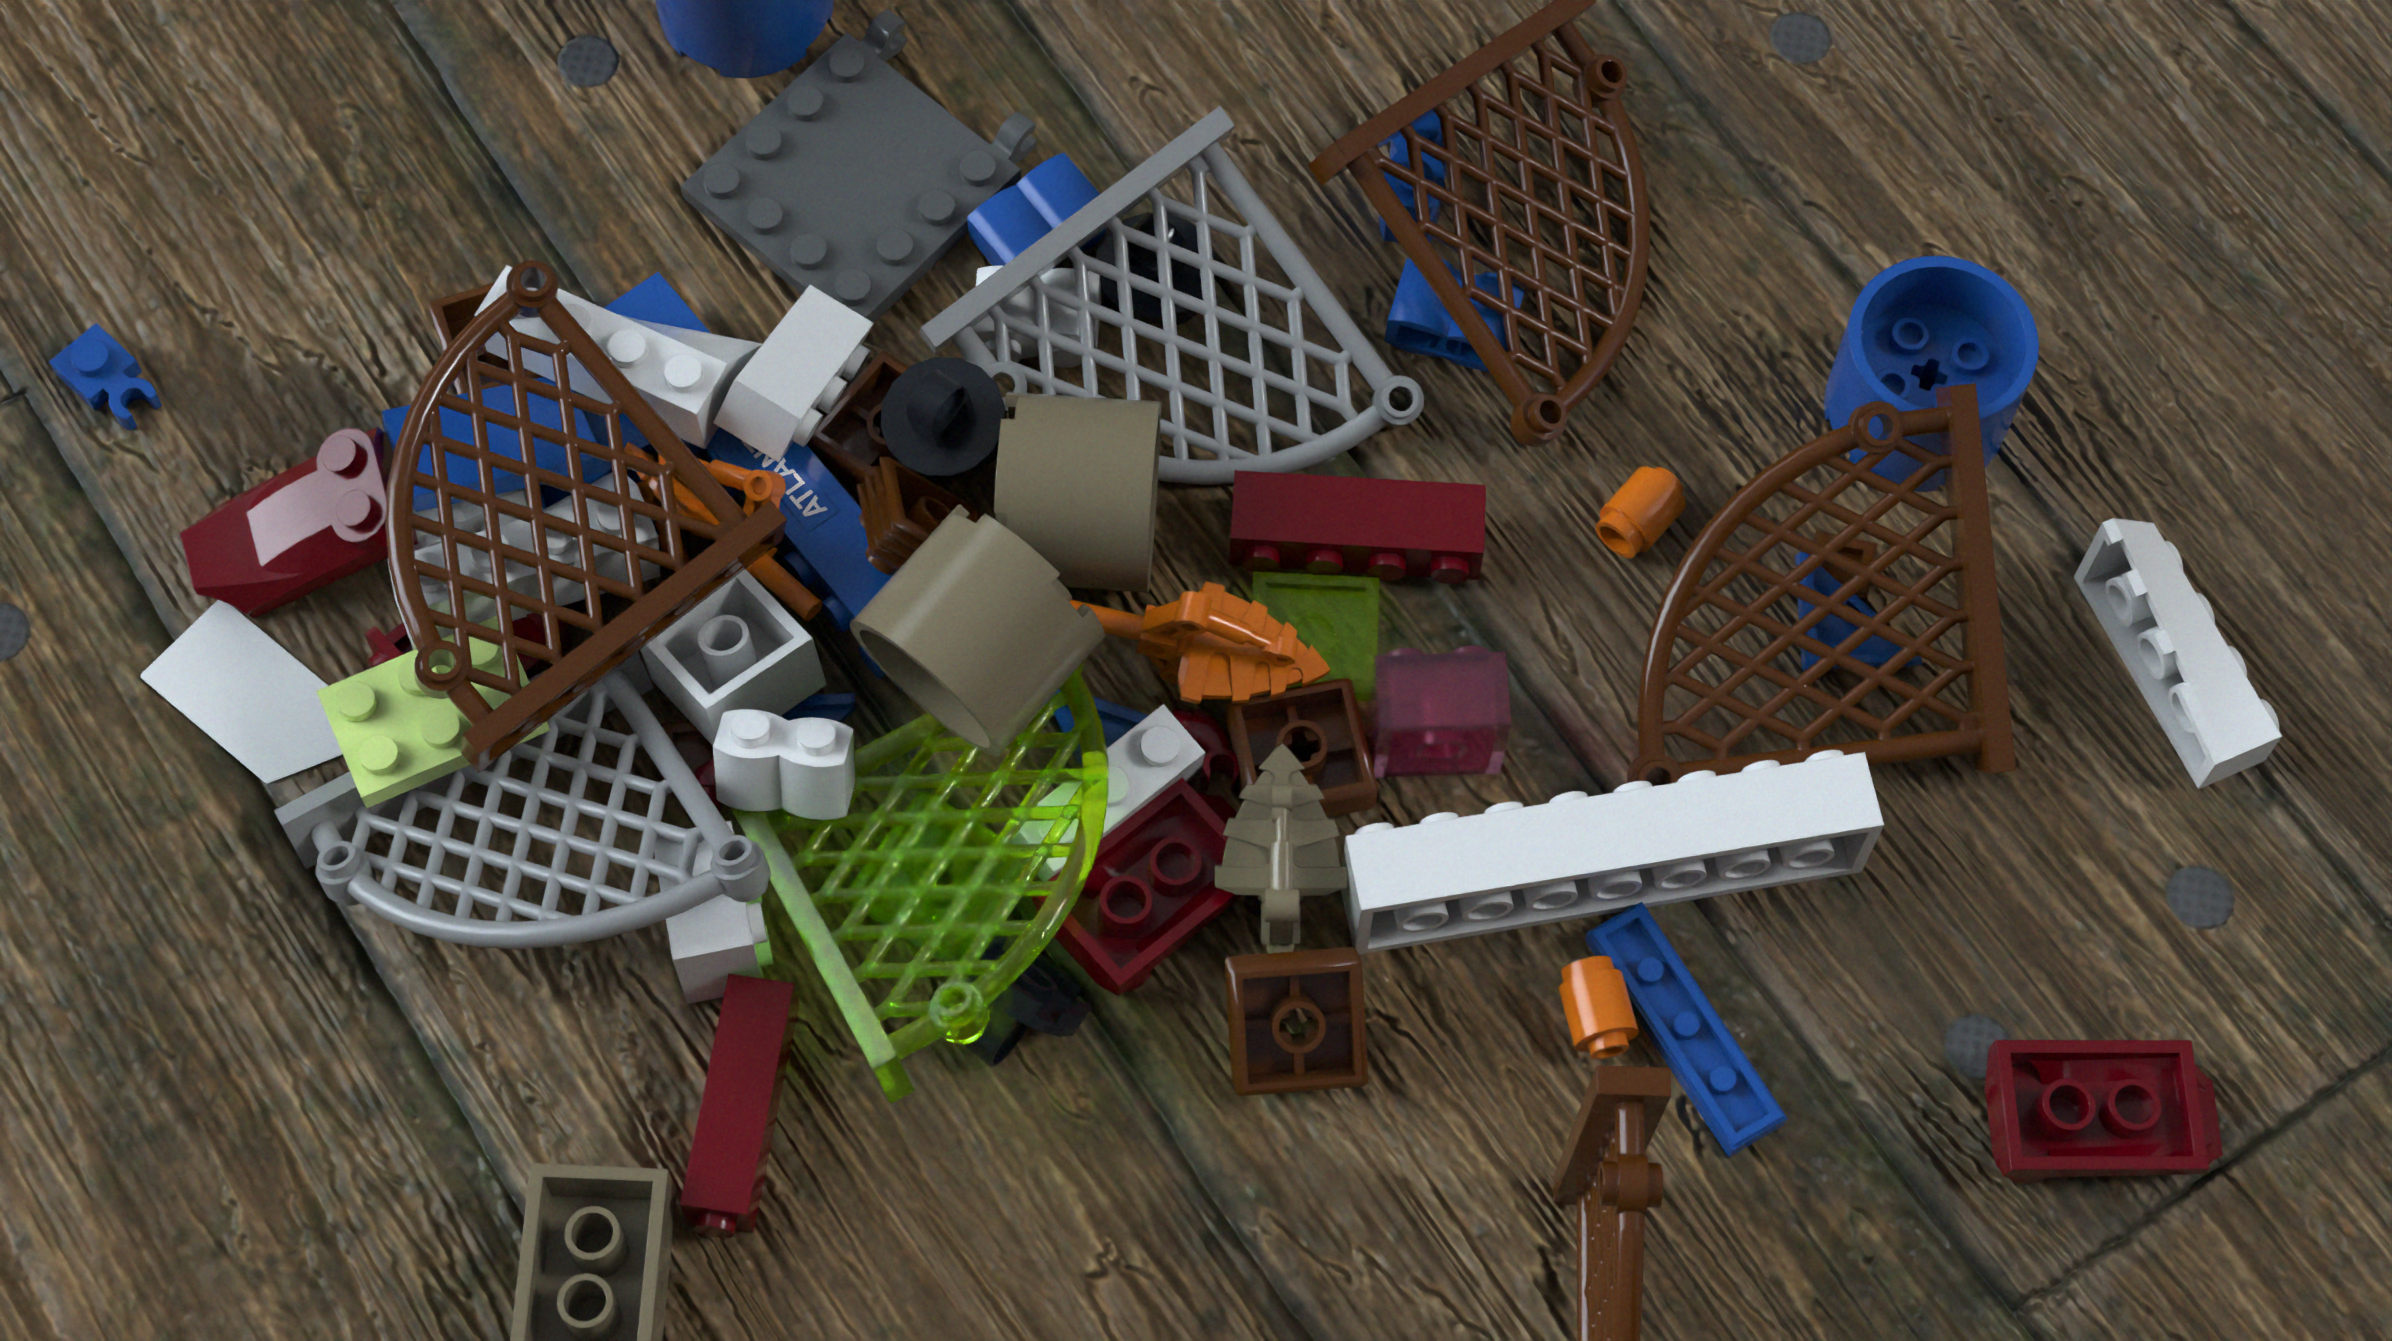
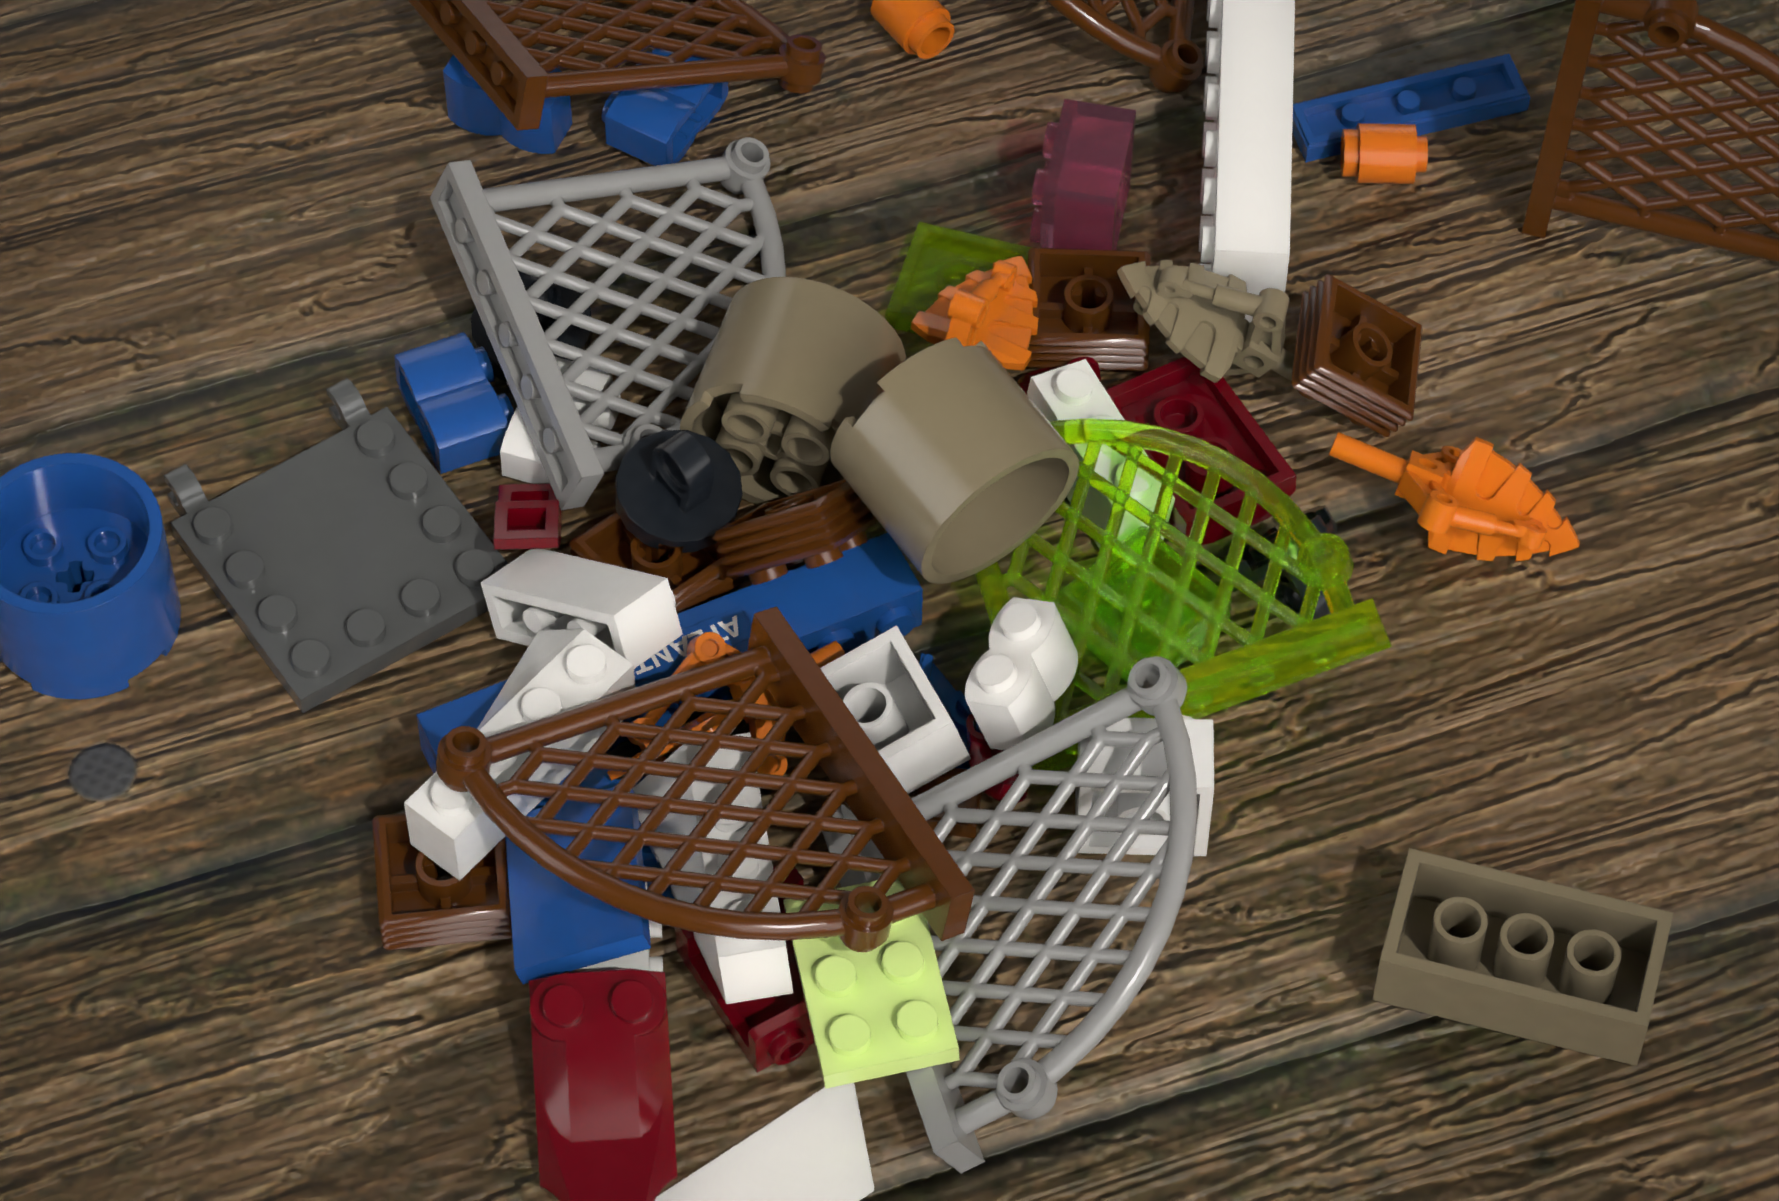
camera: 75 degrees left, 10 degrees down
(739, 1105) = (1328, 807): dark red brick -> none
(894, 312) = (527, 517): none -> dark red slope
(1139, 1176) = (1469, 499): none -> orange bar
(1357, 526) = (873, 205): dark red brick -> none

